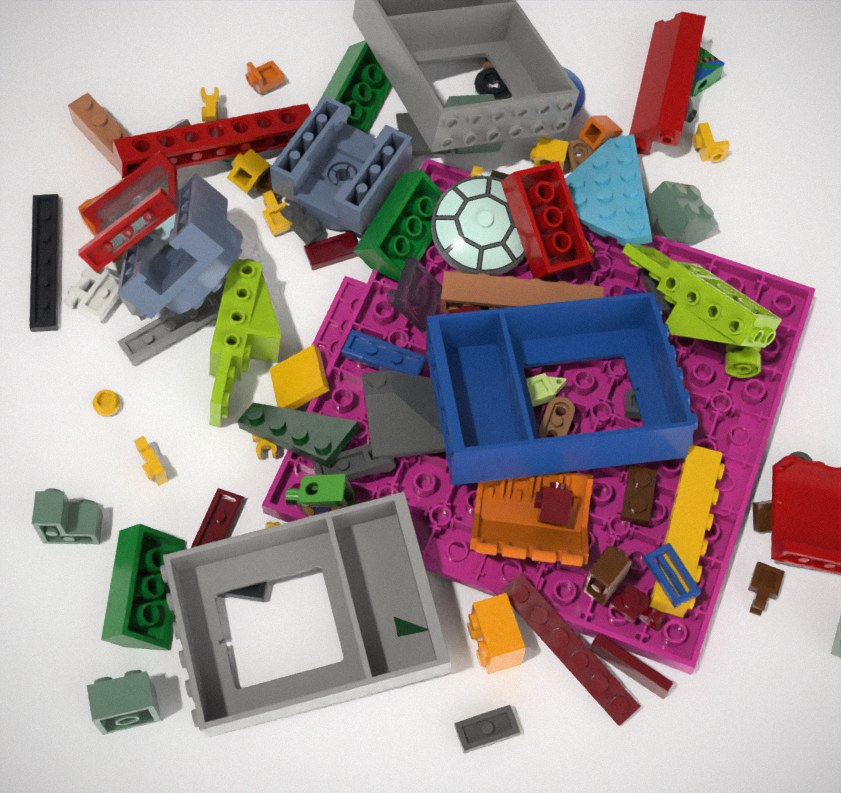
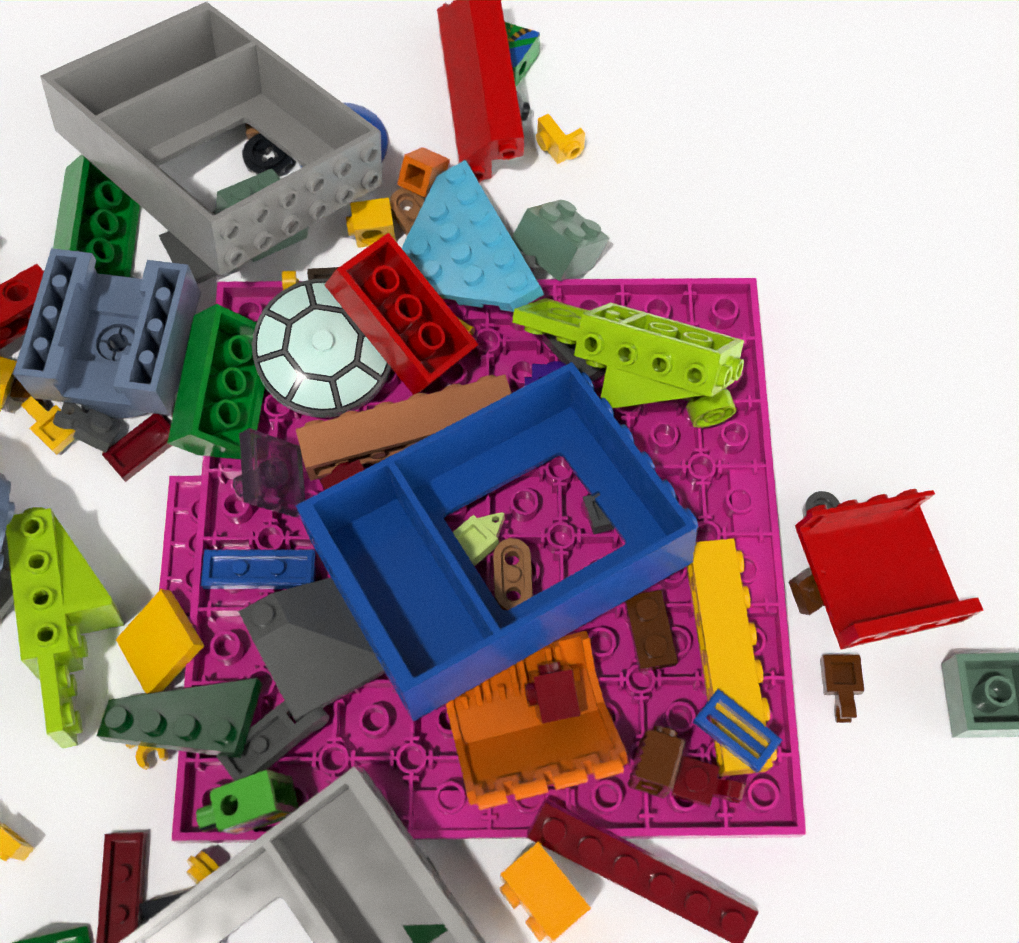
camera: 20 degrees left, 5 degrees up
(631, 666) = (726, 860): dark red tile -> none

